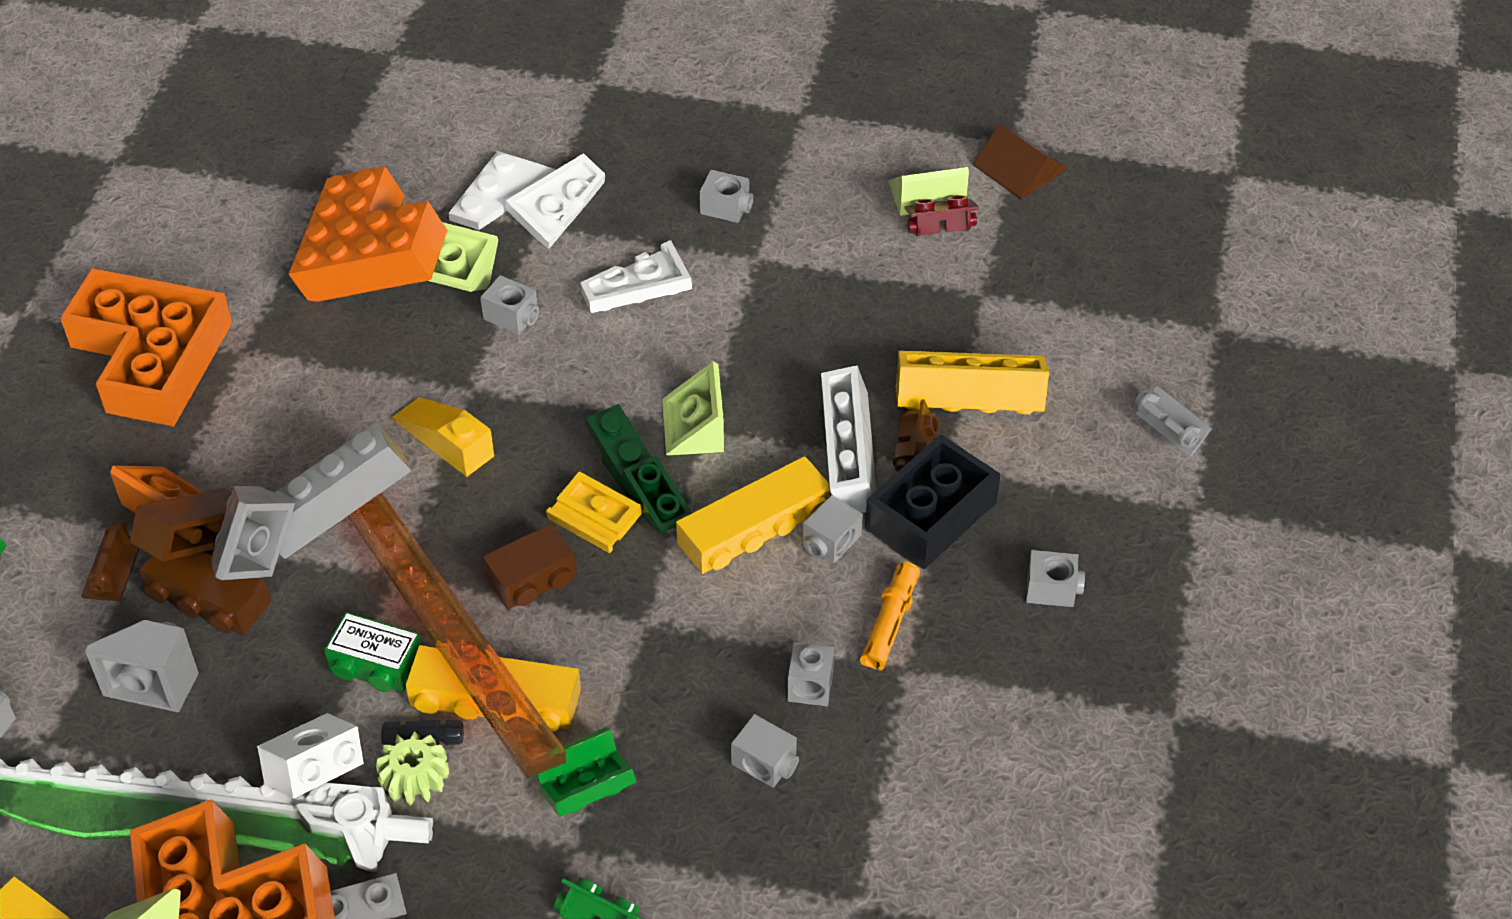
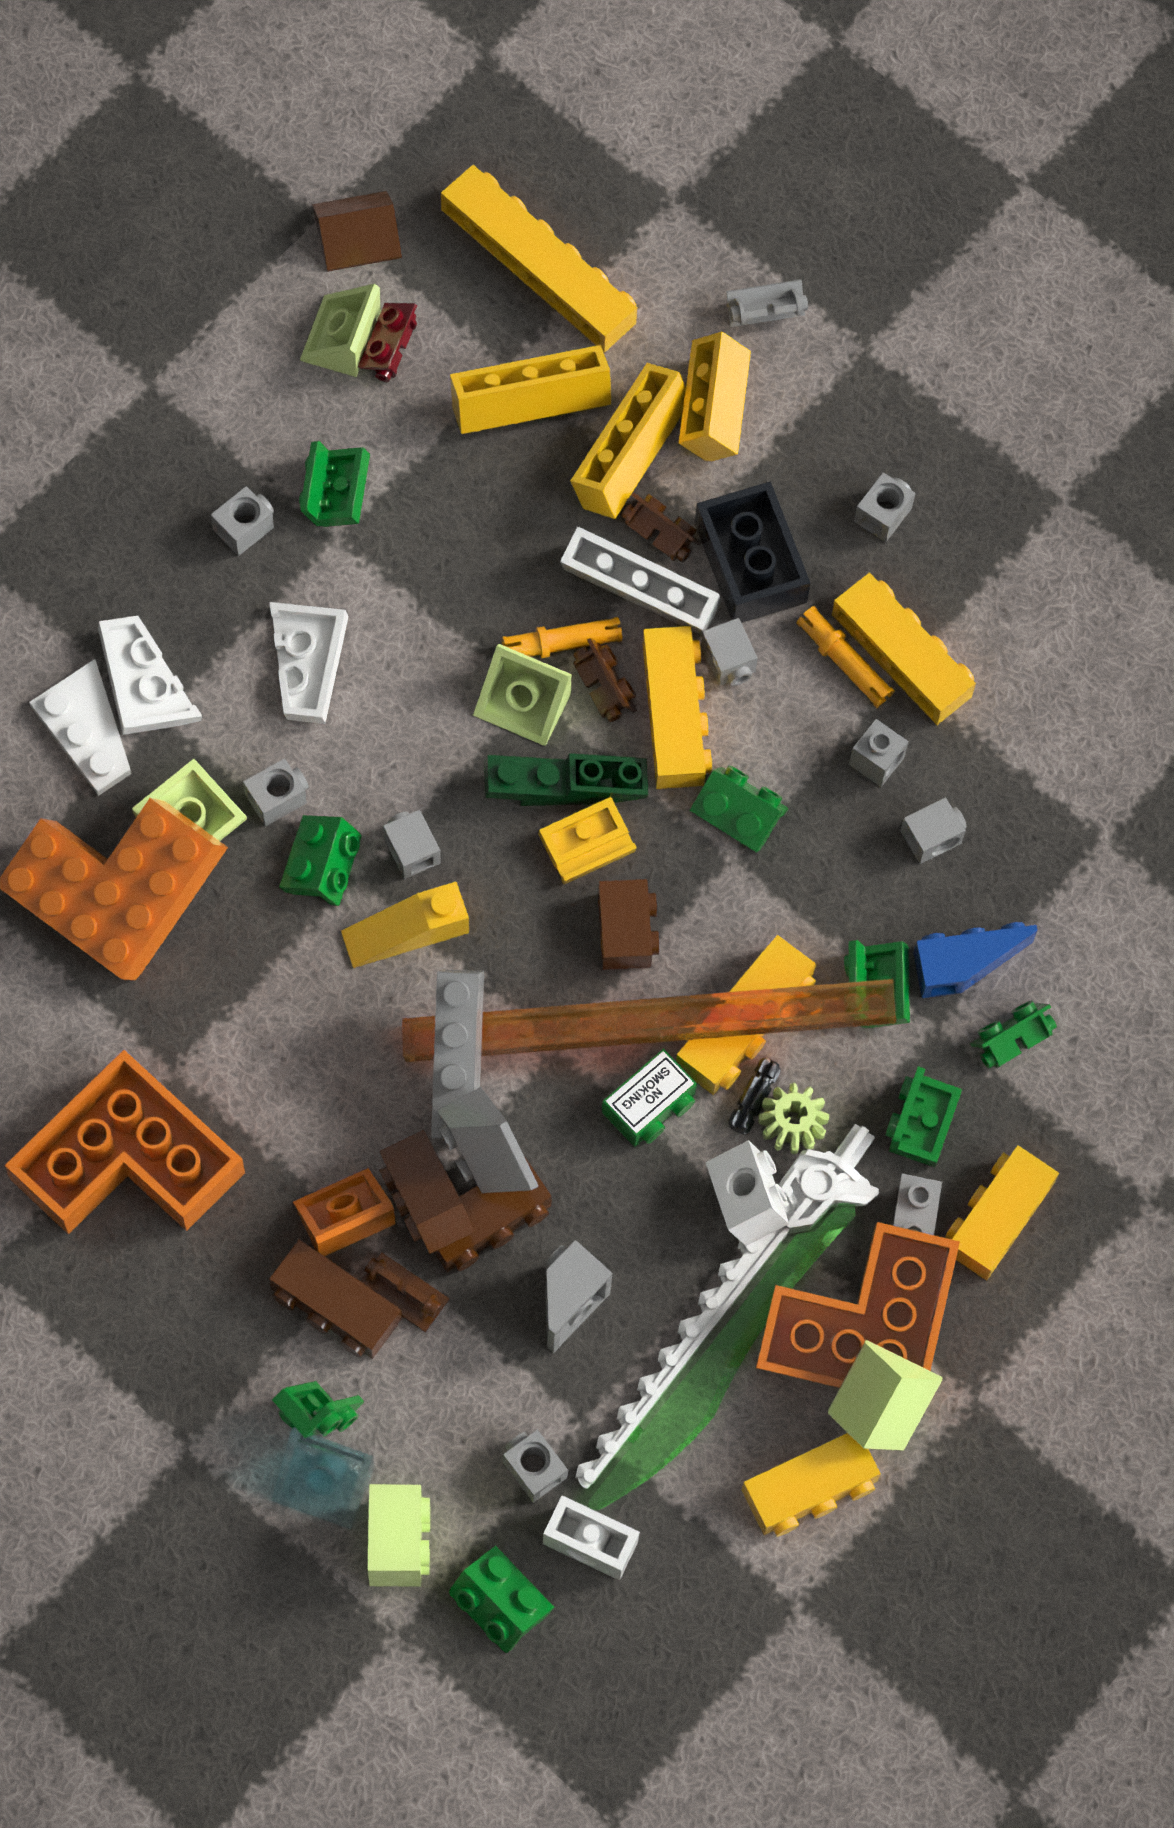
camera: 65 degrees left, 20 degrees up
(77, 522) = (334, 1300): none -> reddish brown brick
(467, 868) = (924, 1118): none -> green bracket
(472, 359) = (321, 858): none -> green bracket
(516, 401) = (411, 843): none -> light grey brick
(647, 833) = (959, 961): none -> blue slope
(695, 601) = (739, 807): none -> green bracket
(753, 461) = (598, 666): none -> reddish brown hinge
(755, 410) = (544, 641): none -> light orange pin
(793, 230) = (334, 485): none -> green bracket
(927, 653) = (904, 648): none -> yellow brick
(964, 302) = (530, 389): none -> yellow brick
(1055, 418) = (714, 397): none -> yellow brick
(1084, 269) = (539, 257): none -> yellow brick

